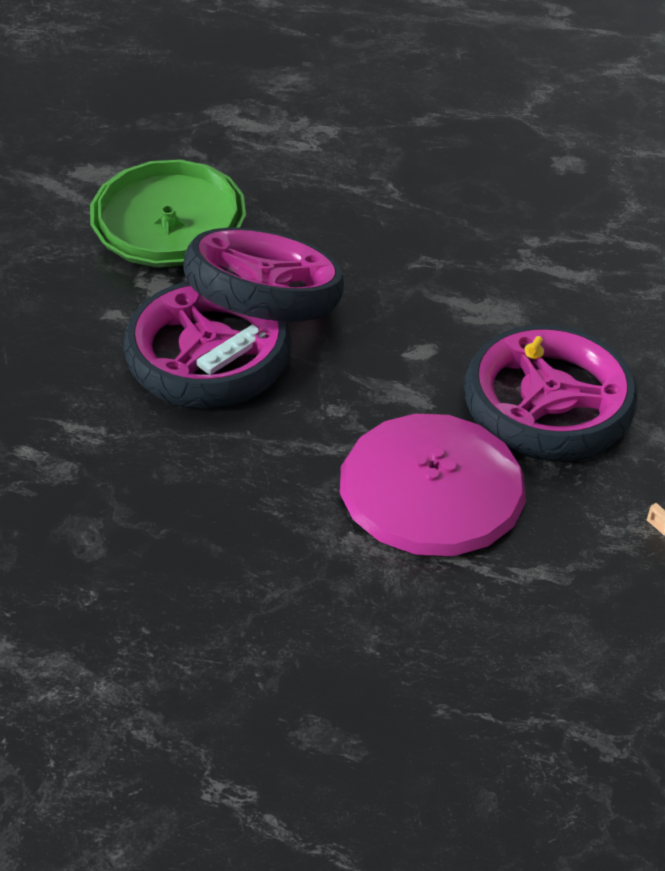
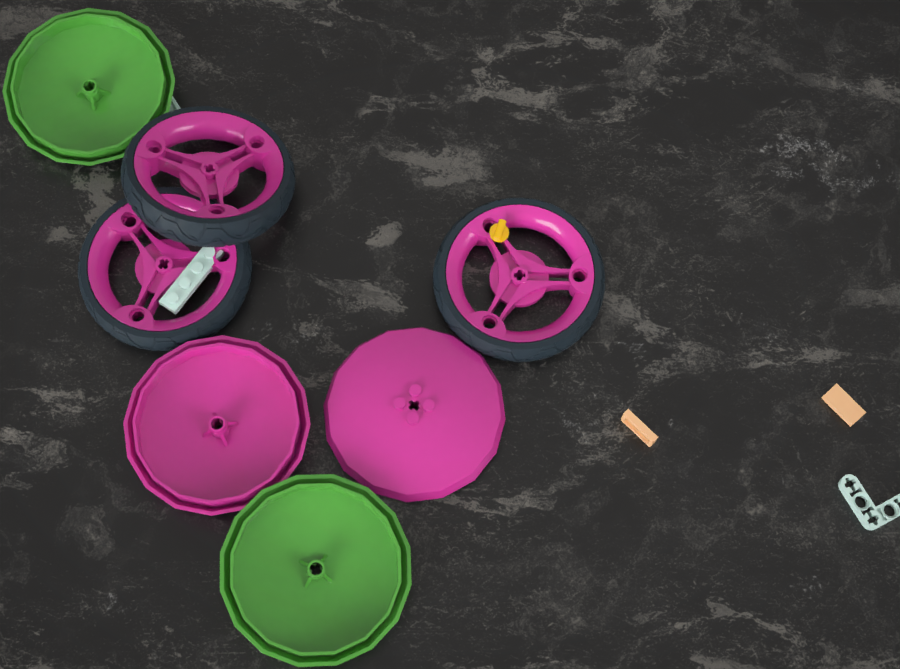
camera: 10 degrees left, 25 degrees up
(233, 460) = (176, 418): none -> dark pink container
(312, 588) = (306, 615): none -> bright green container

